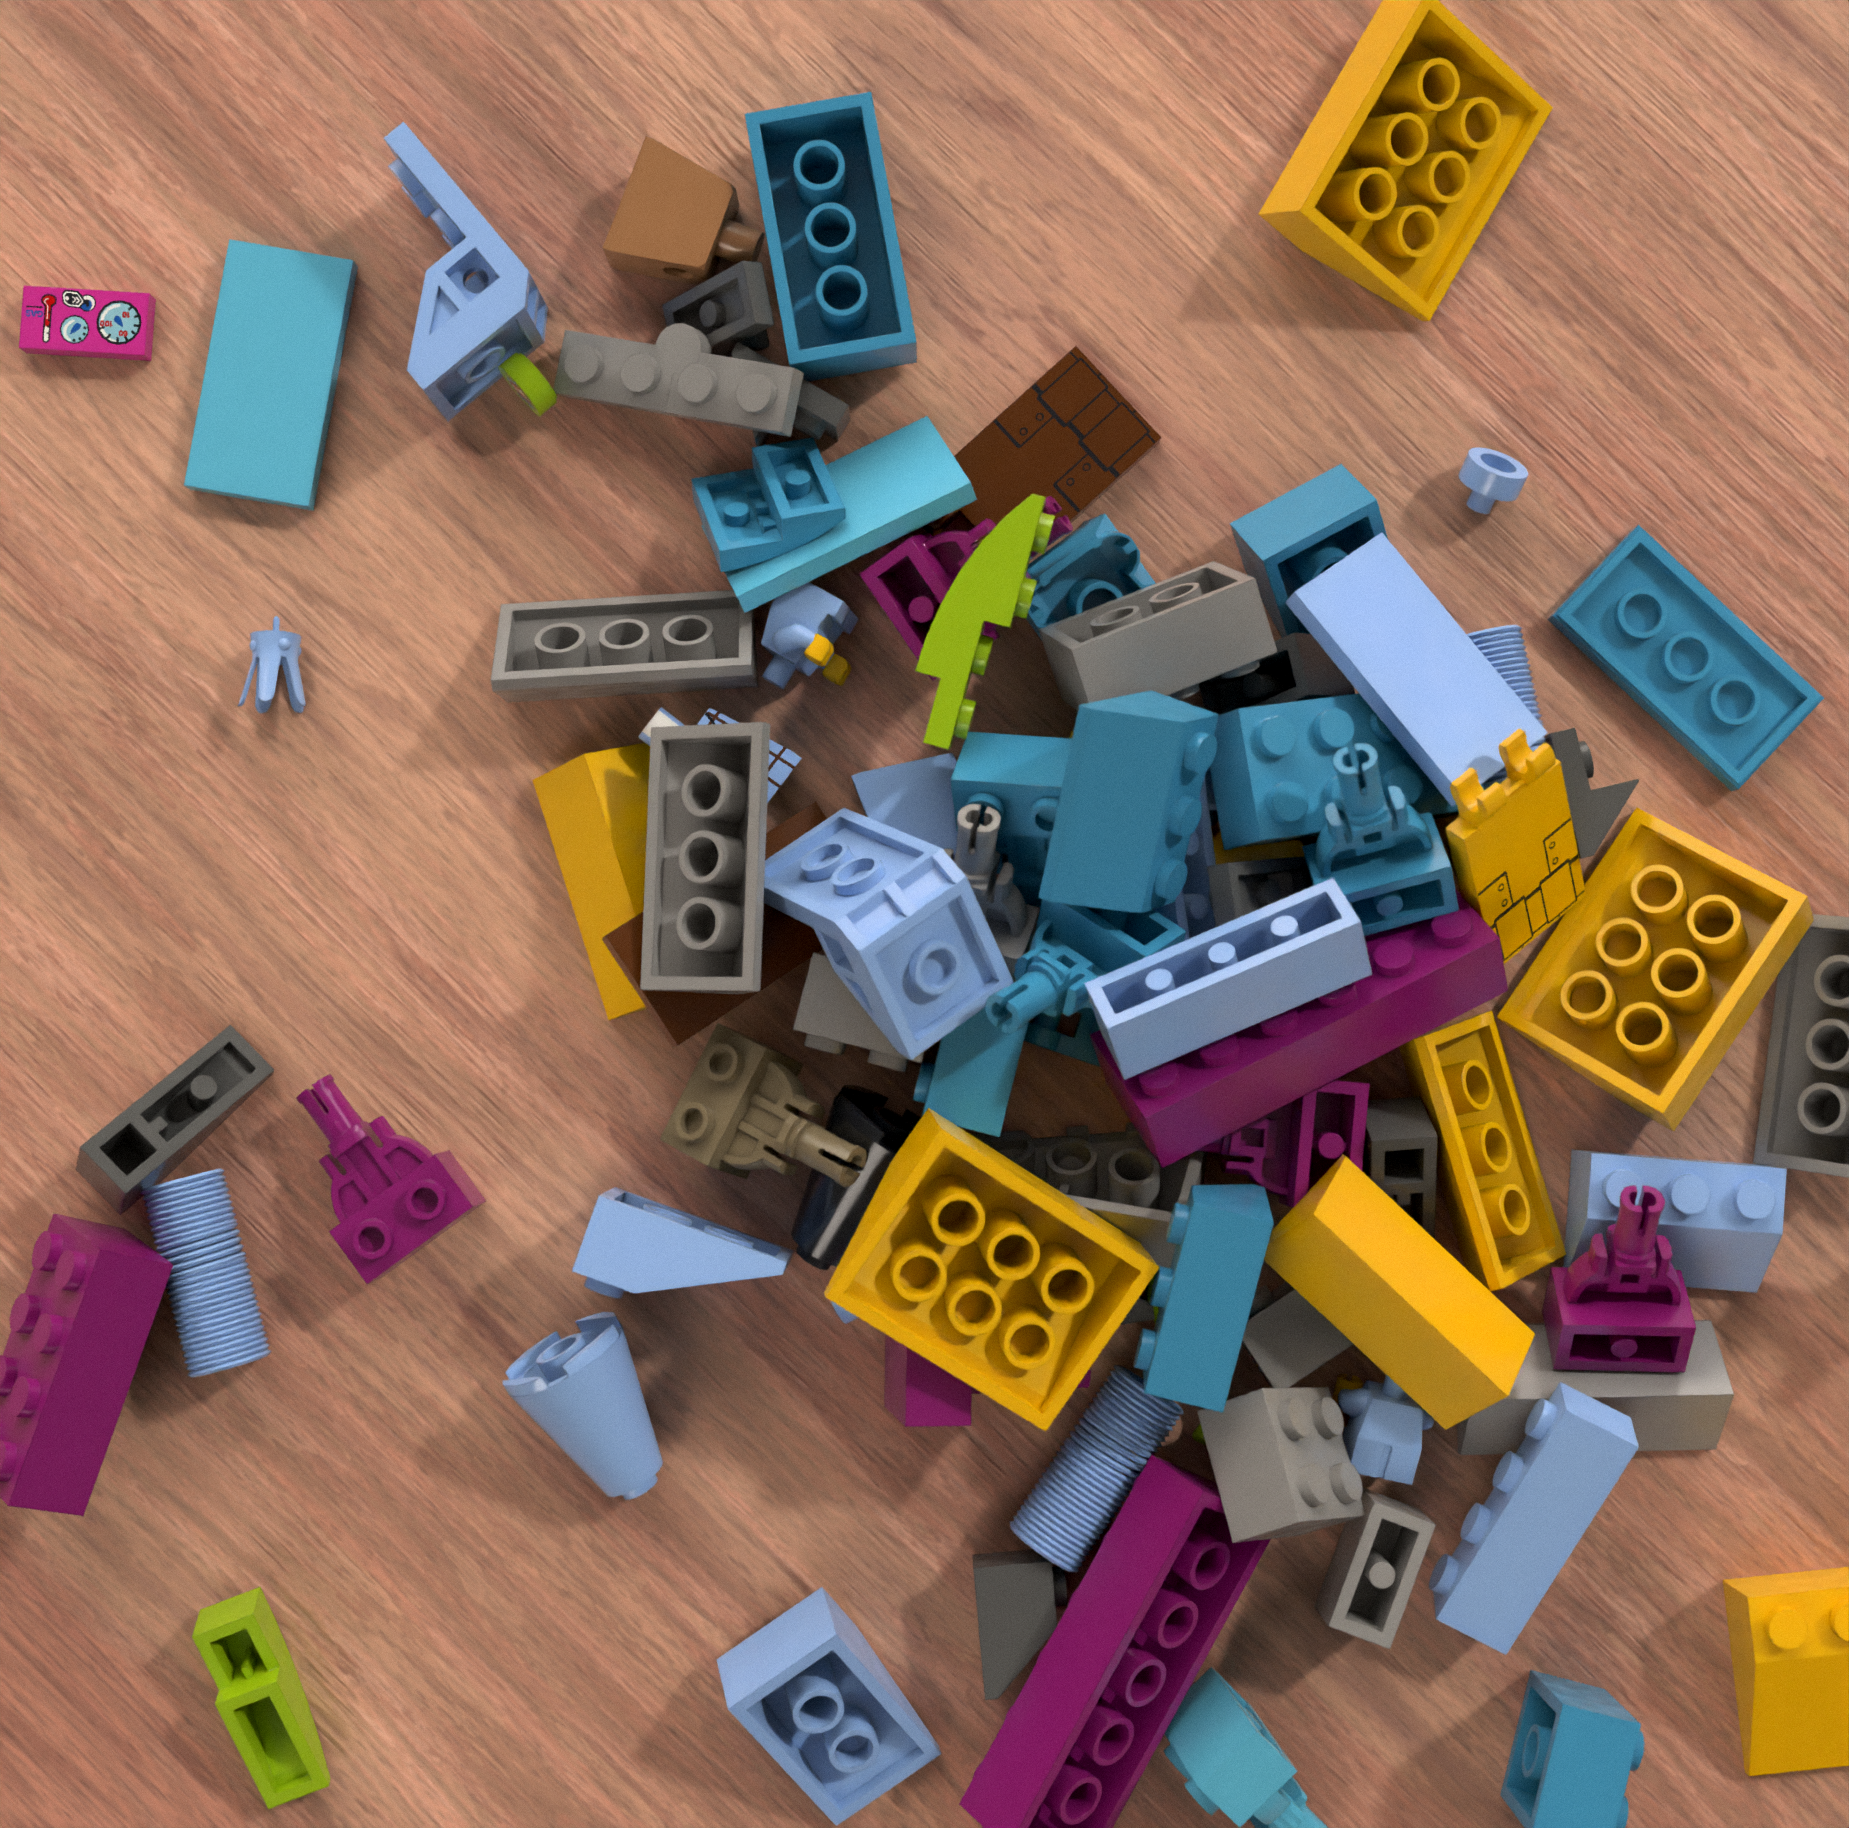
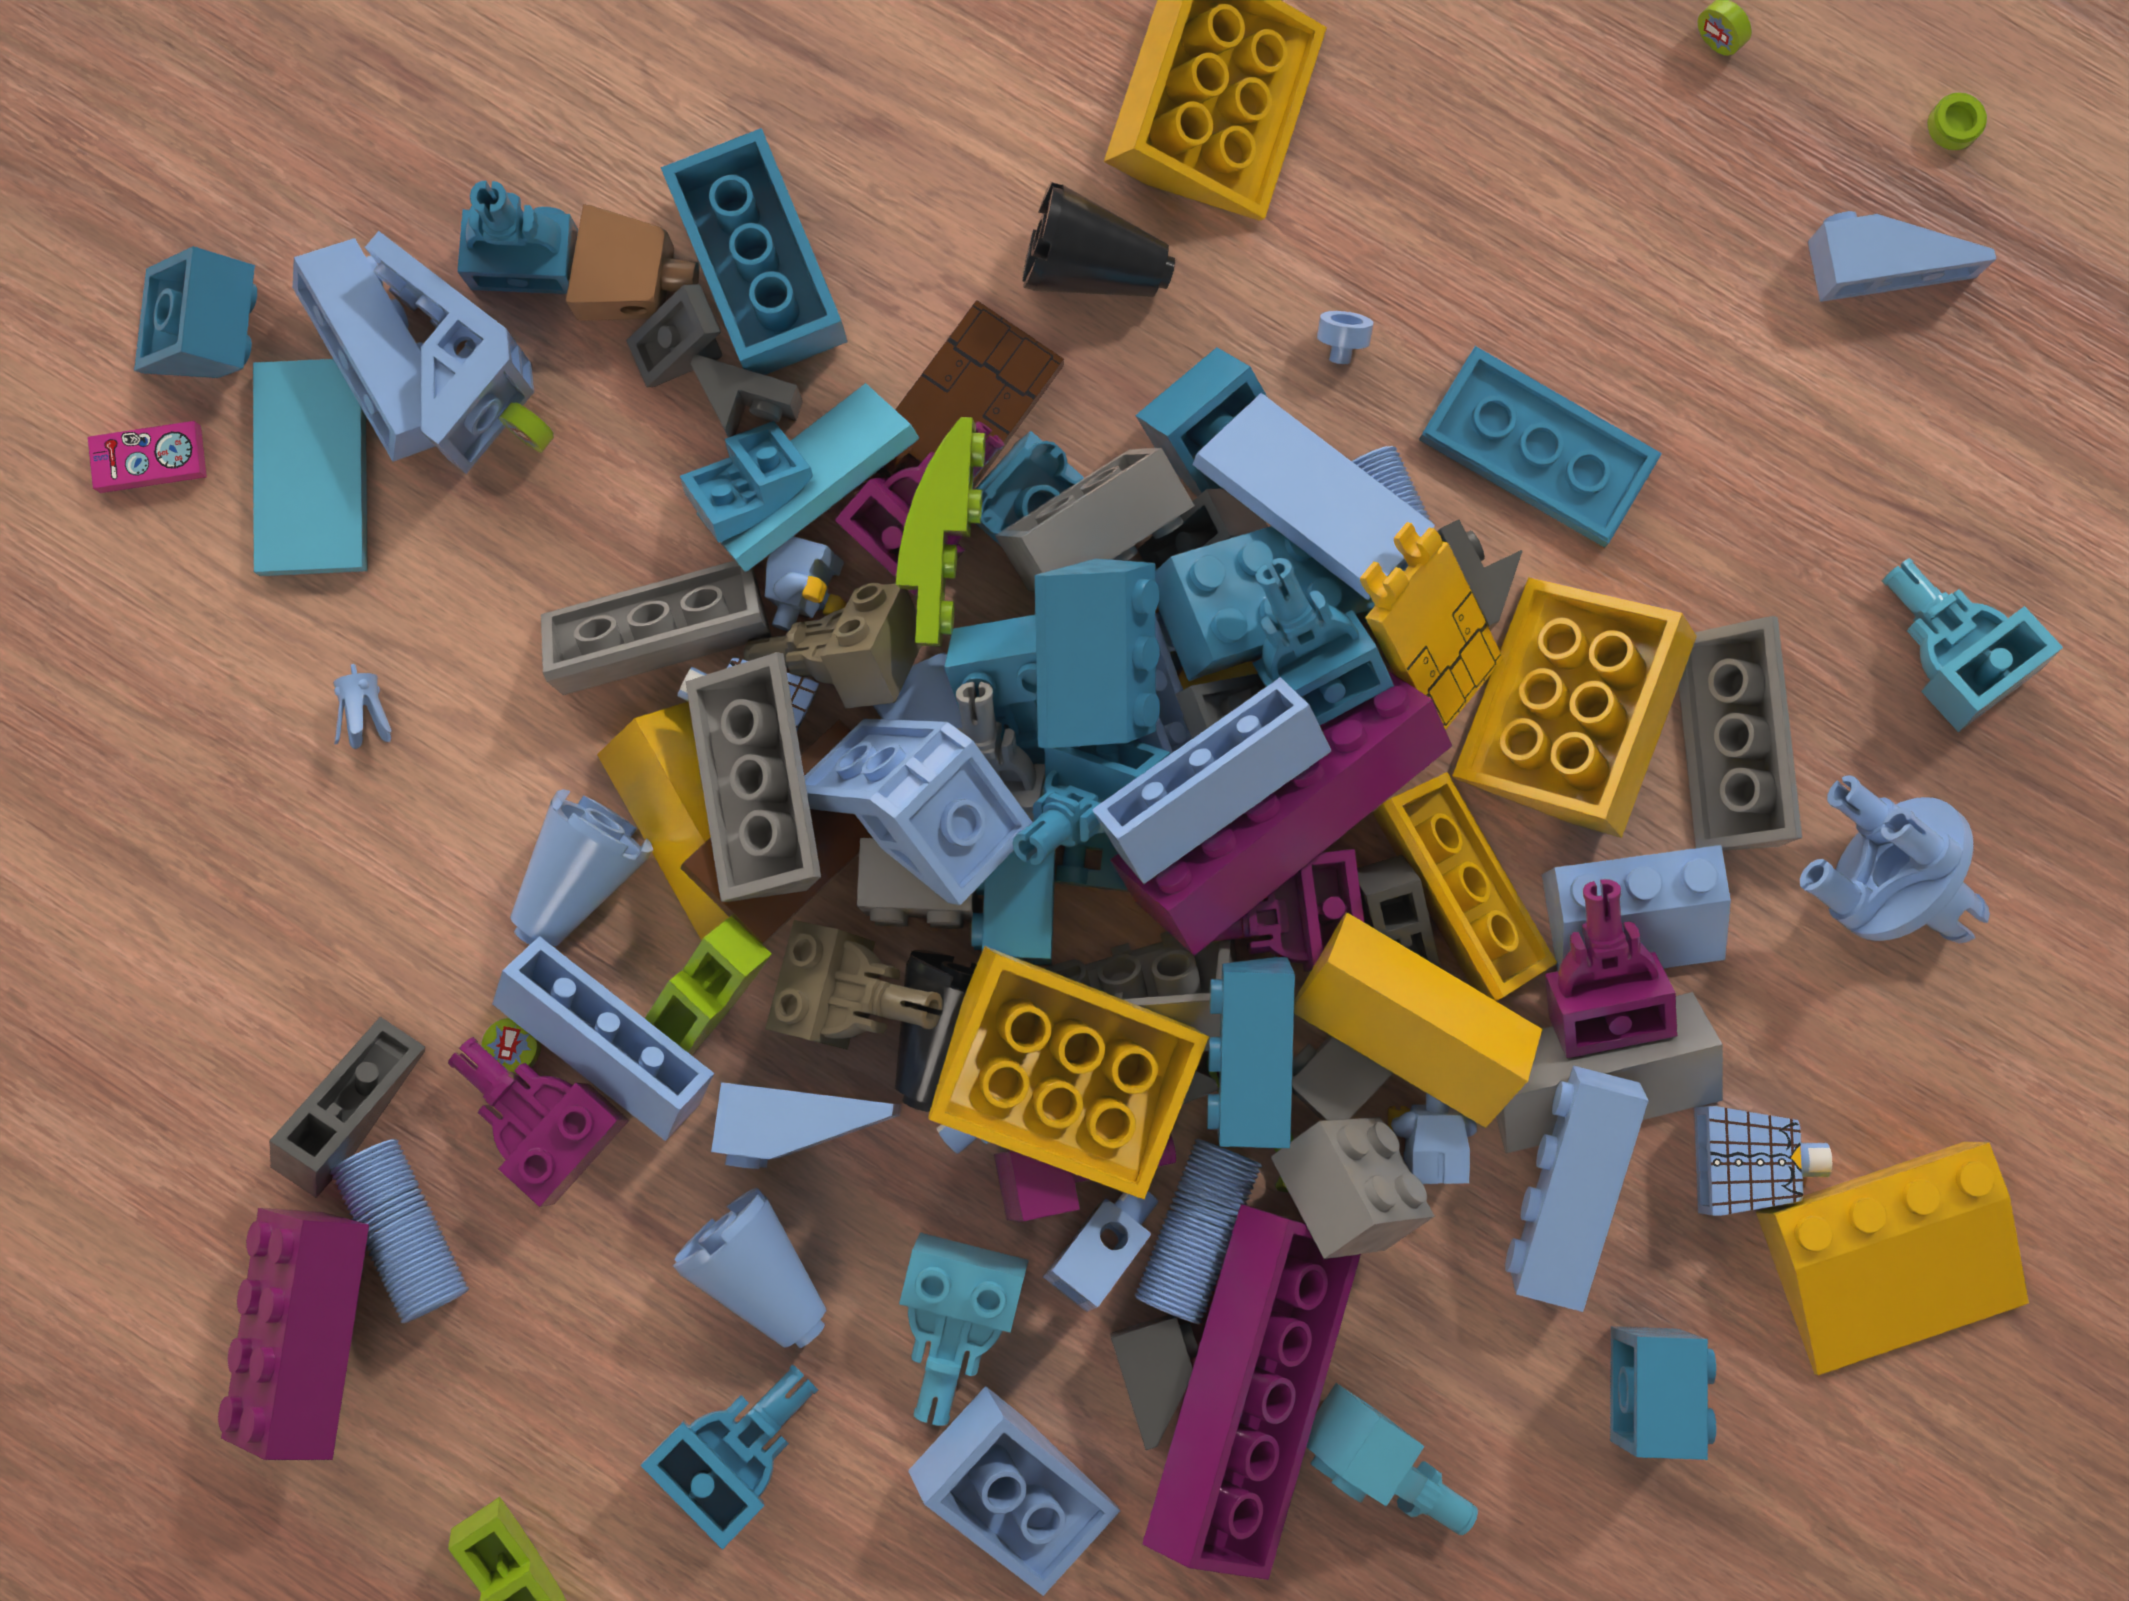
camera: 10 degrees left, 5 degrees down
(173, 170) = (196, 315): none -> dark azure slope
(364, 243) = (367, 341): none -> light blue brick
(372, 1088) = (511, 1044): none -> tile
(474, 1107) = (602, 1038): none -> light blue brick
(482, 907) = (574, 867): none -> light blue cone
(510, 1610) = (720, 1464): none -> dark azure brick
(557, 171) = (514, 248): none -> dark azure brick
(595, 1084) = (708, 985): none -> lime slope
(679, 380) = (651, 395): light grey hinge -> none
(813, 1490) = (959, 1303): none -> medium azure brick
(853, 726) = (857, 648): none -> dark tan brick
(959, 1475) = (1088, 1268): none -> light blue torso
(1222, 318) = (1092, 250): none -> black cone
(1375, 1569) = (1454, 1263): light grey brick -> none
(1733, 1527) = (1752, 1160): none -> light blue torso

